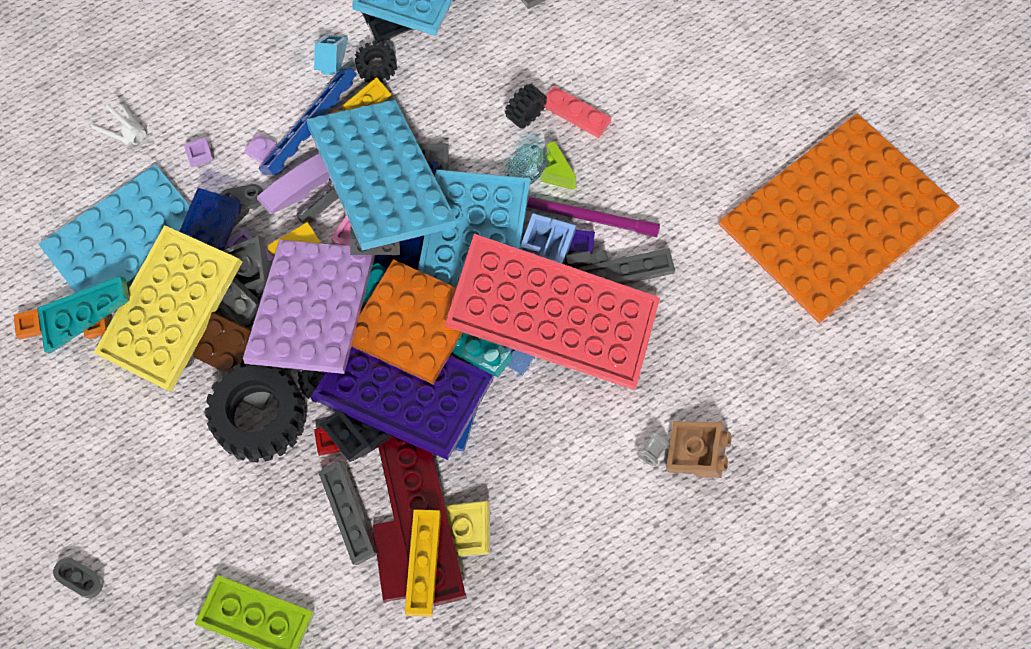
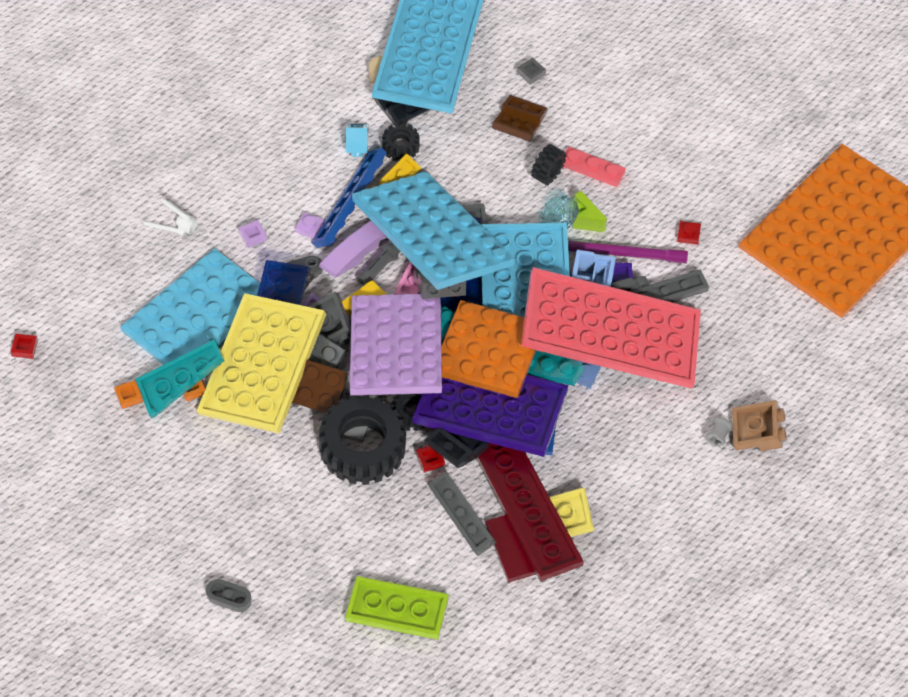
camera: 15 degrees left, 10 degrees down
(423, 563) = (542, 538): yellow plate -> none
(509, 47) = (519, 118): none -> reddish brown slope
(666, 201) = (689, 232): none -> red plate

